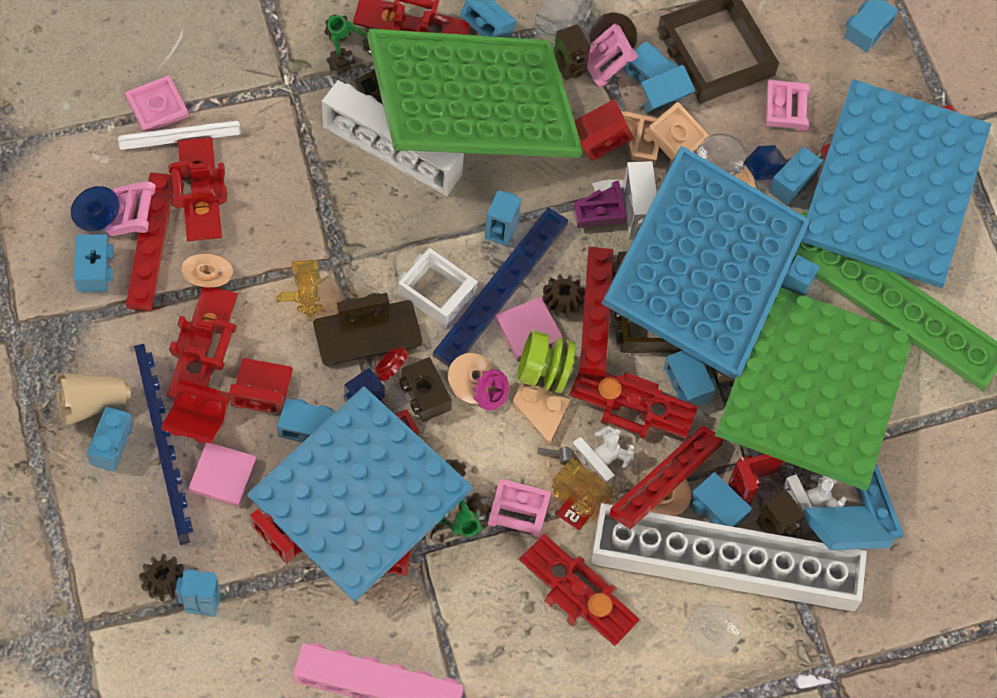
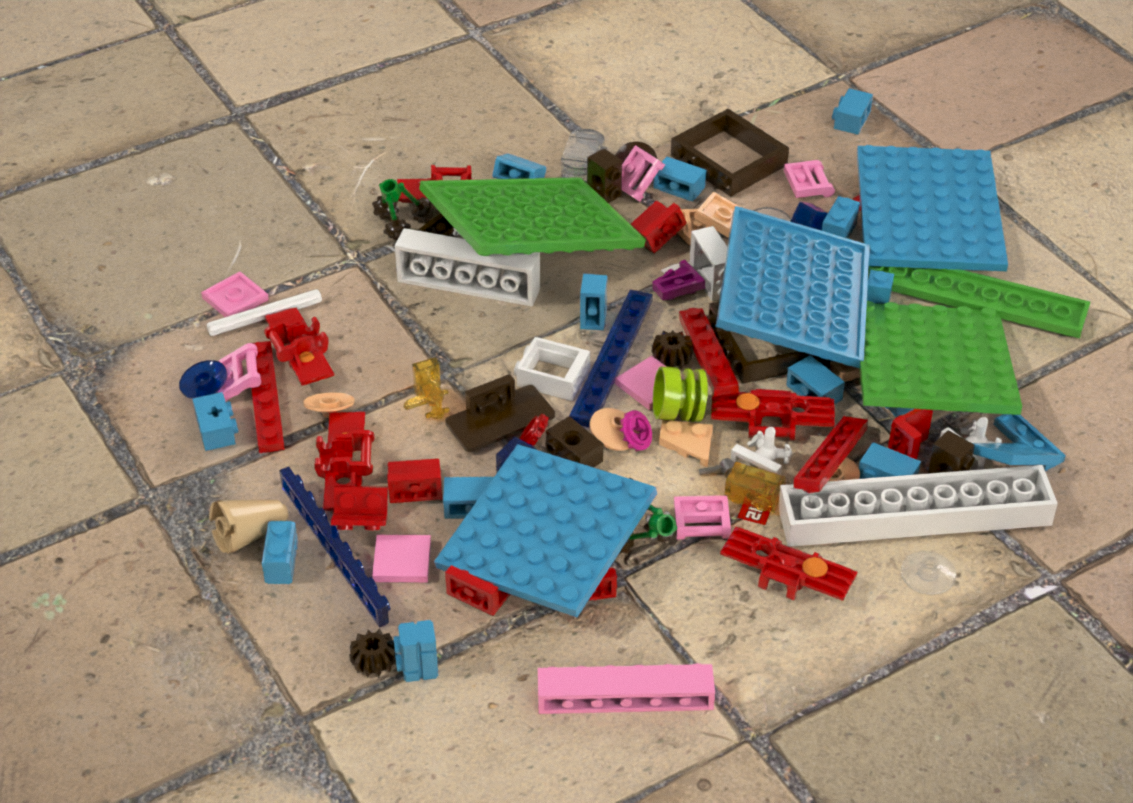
camera: 10 degrees left, 20 degrees down
(666, 88) = (699, 185): dark azure panel -> none

